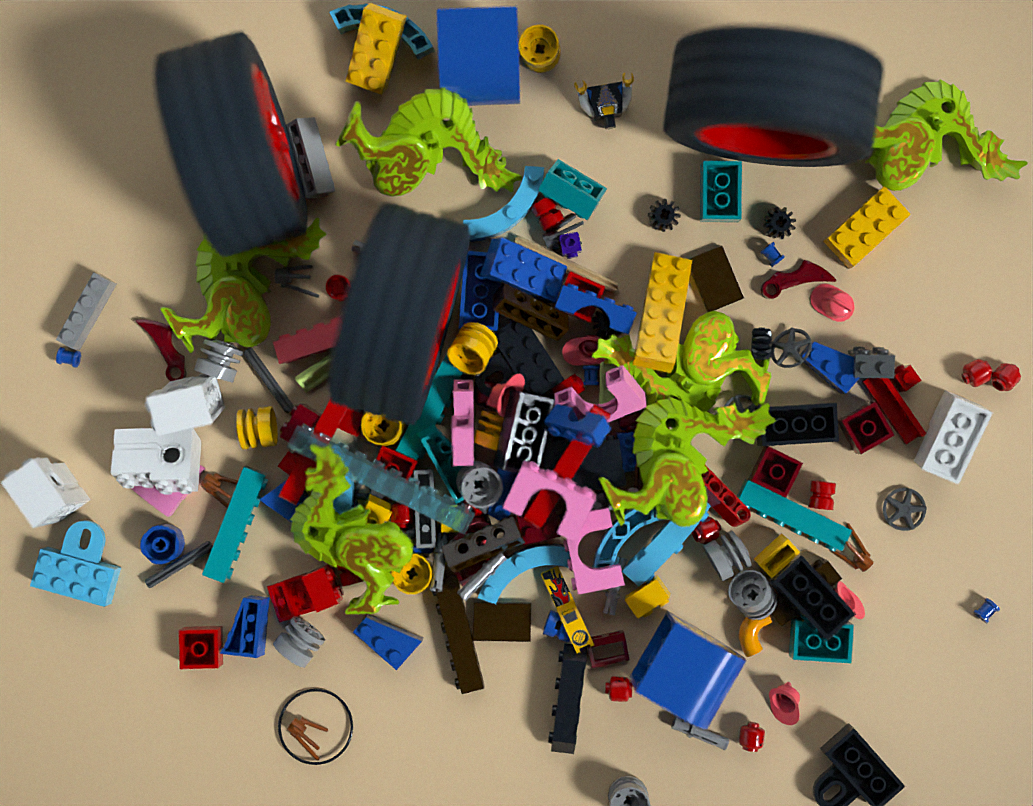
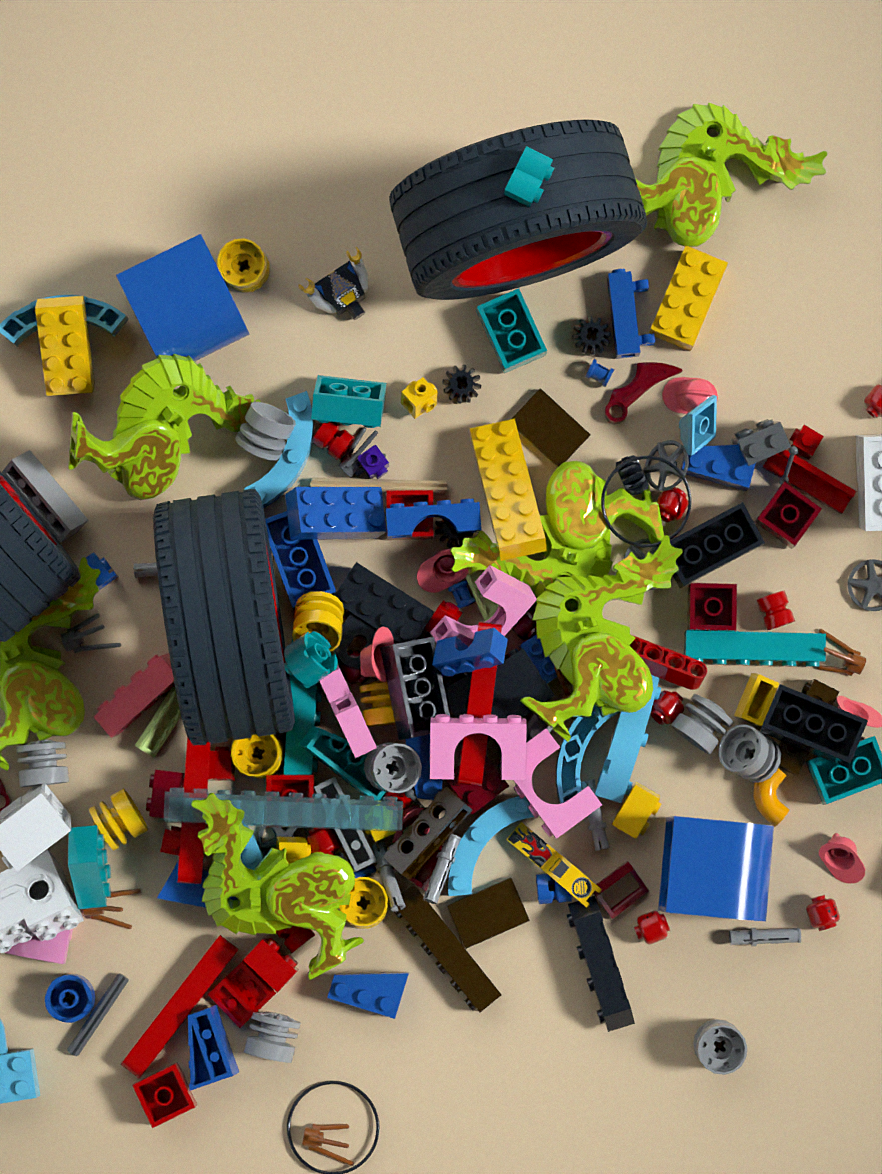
camera: 30 degrees left, 5 degrees down
(217, 454) = (88, 867): none -> teal brick
(234, 524) = (141, 939): teal brick -> none
(241, 586) = (179, 1006): none -> red beam
(269, 380) = (107, 762): dark grey axle -> none
(329, 239) = (101, 564): none -> blue brick
(337, 287) = (140, 624): red wheel -> none
(453, 374) = (309, 659): none -> teal brick
(498, 183) = (265, 431): none -> light grey wheel
(530, 312) = (363, 554): dark brown brick -> none
(627, 211) = (419, 397): none -> yellow brick
(759, 333) = (612, 474): none -> black piece
(781, 379) = (672, 504): none -> red head
(800, 71) = (528, 177): none -> teal brick
(812, 216) = (623, 313): none -> blue brick
(830, 329) = (699, 425): none -> medium azure slope
(874, 398) = (784, 478): none -> dark grey hinge

